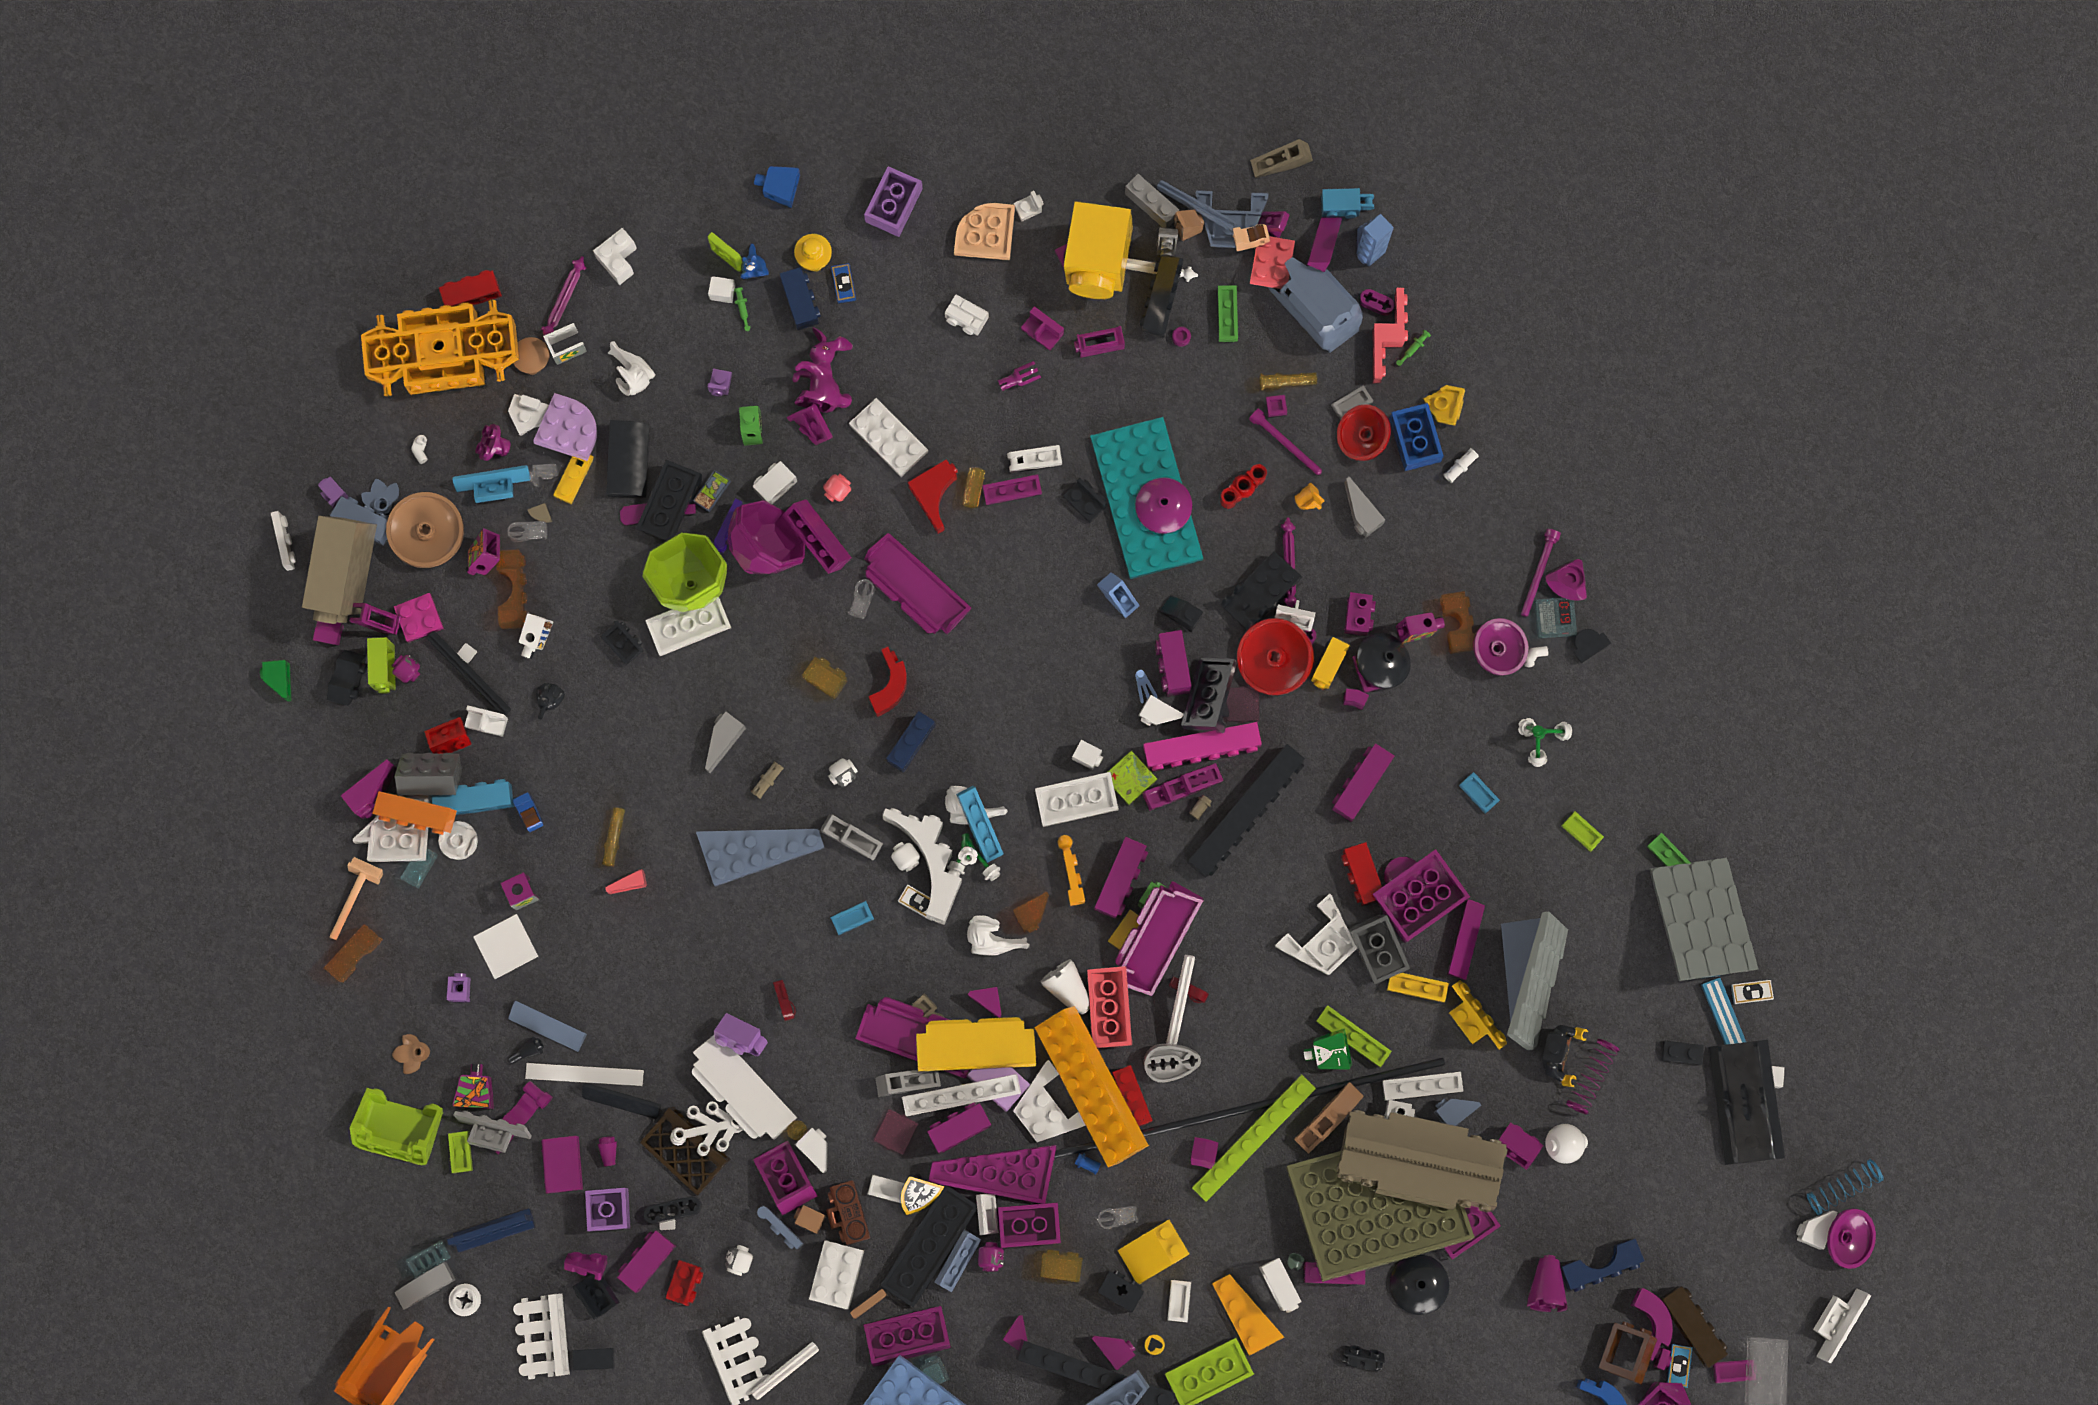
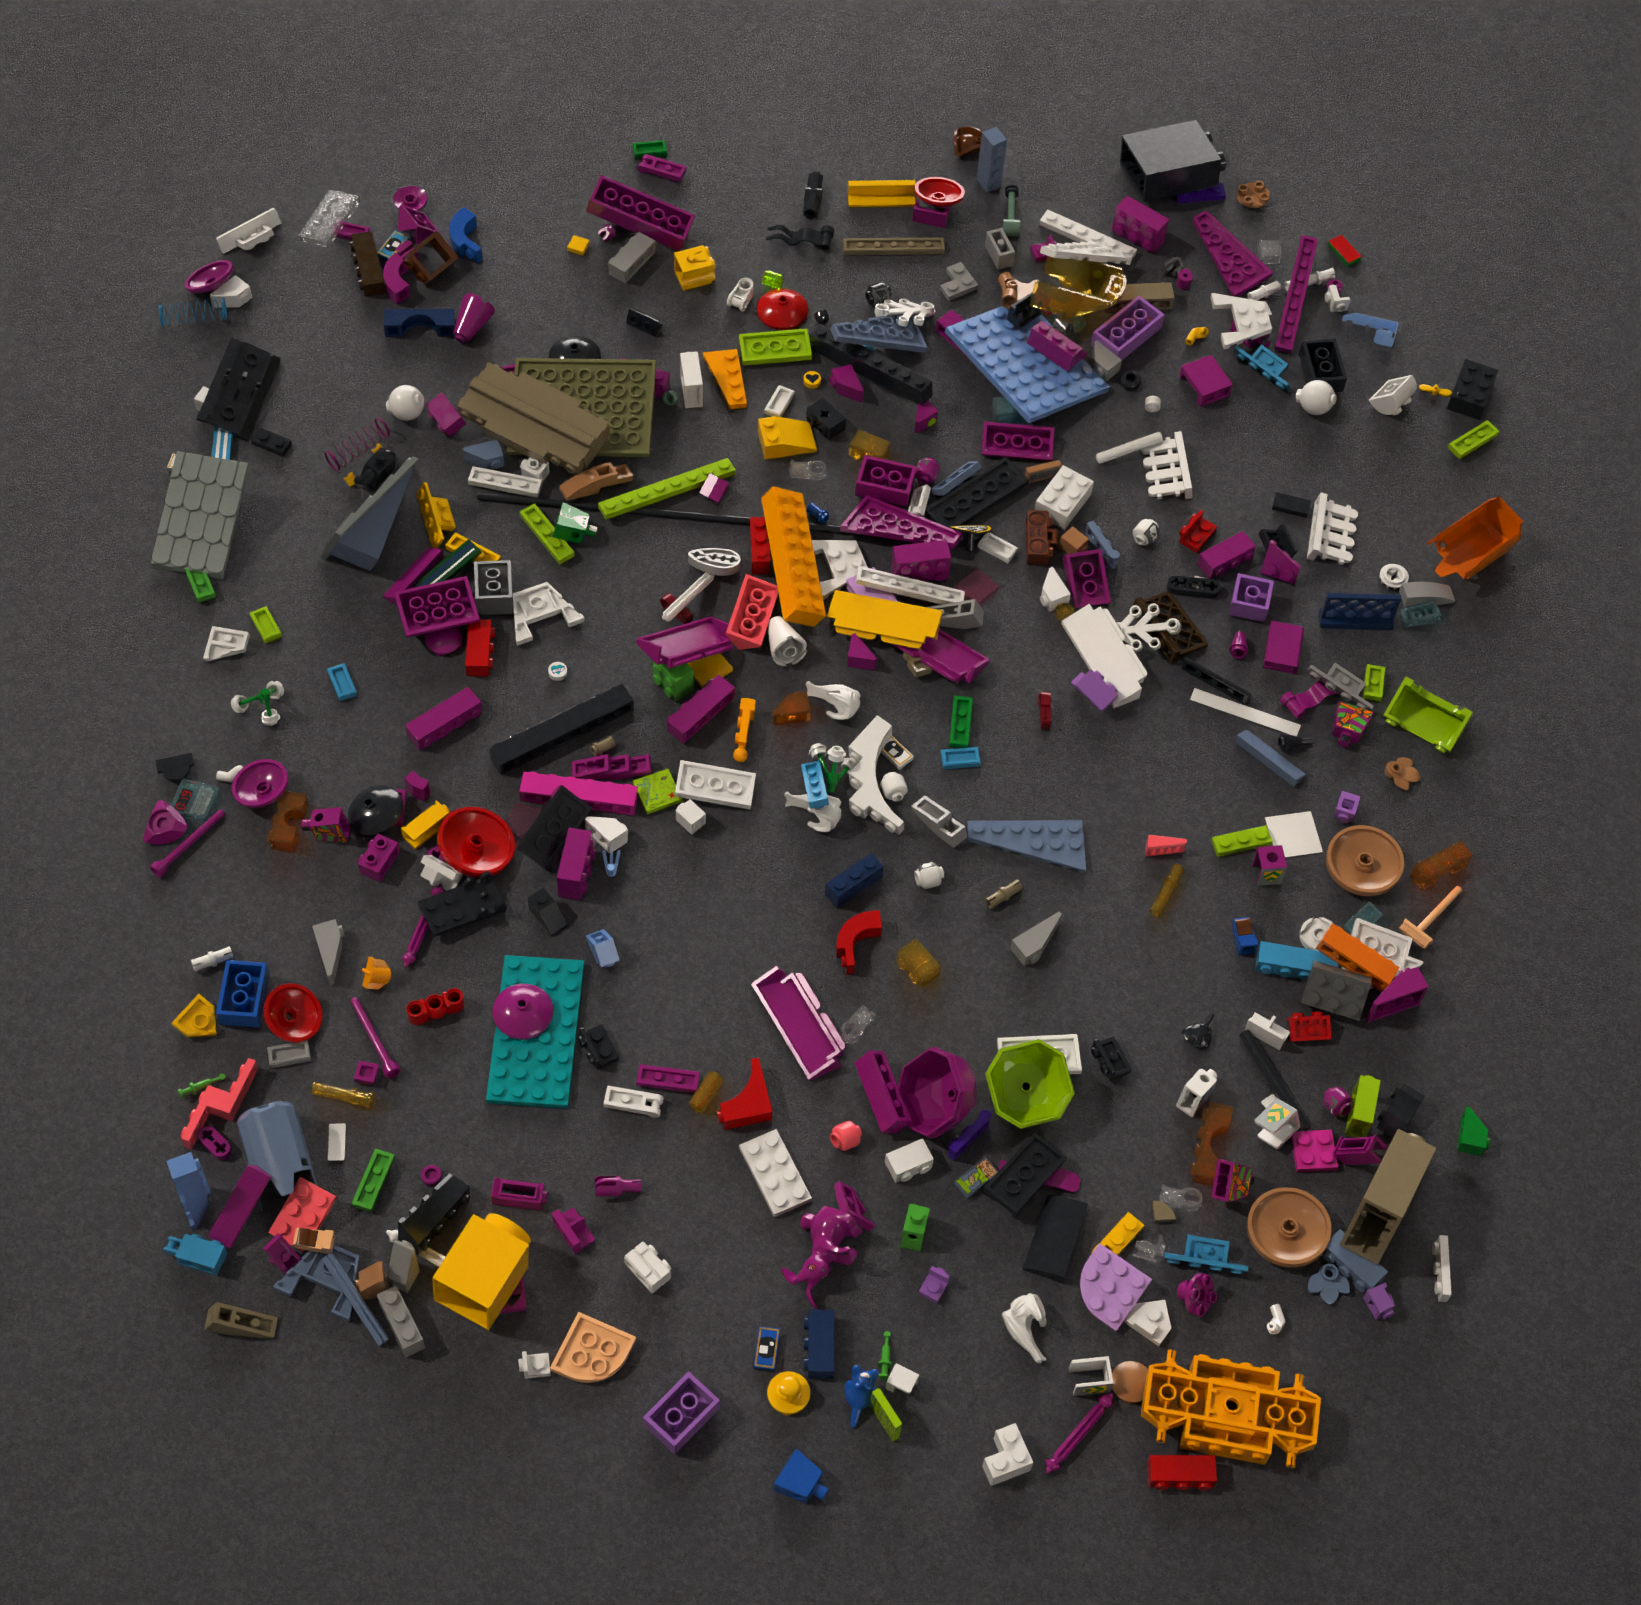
camera: 165 degrees left, 20 degrees down
(428, 930) = (1364, 860): none -> medium nougat dish
(456, 624) = (1279, 1123): none -> piece
(554, 919) = (1241, 841): none -> lime plate
(863, 956) = (960, 722): none -> green plate
(1274, 339) = (336, 1146): none -> white sticker
(1277, 878) = (557, 671): none -> white tile
(1433, 954) = (451, 564): none -> dark green tile
(1609, 794) = (225, 643): none -> white wing

